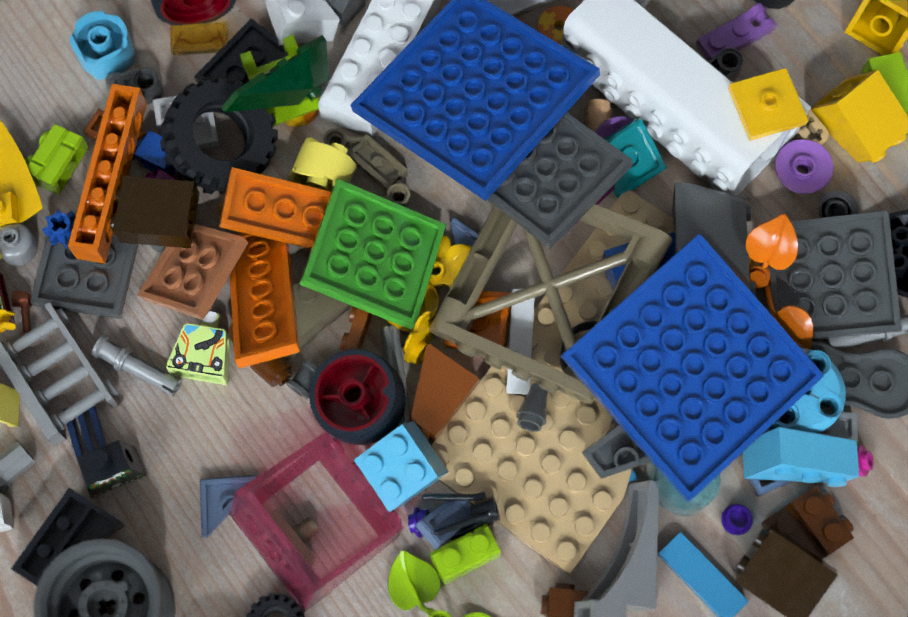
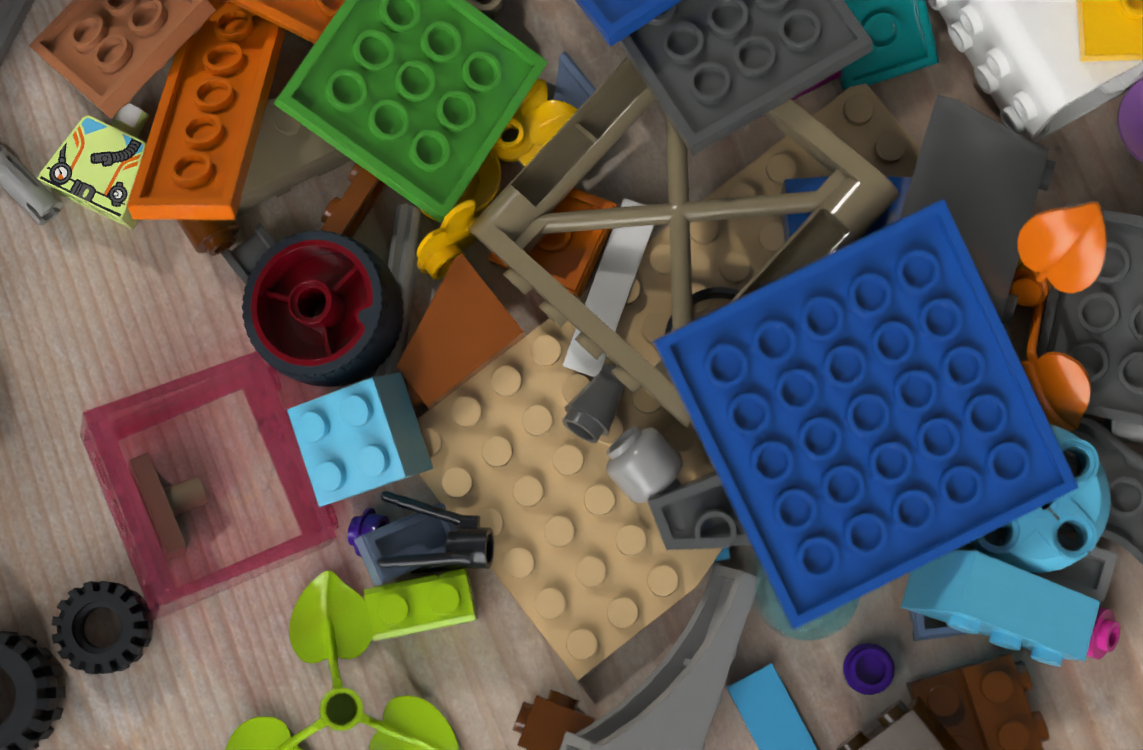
camera: 20 degrees right, 10 degrees up
(217, 499) = (62, 407): sand blue tile -> none
(572, 434) = (643, 464): none -> light grey head

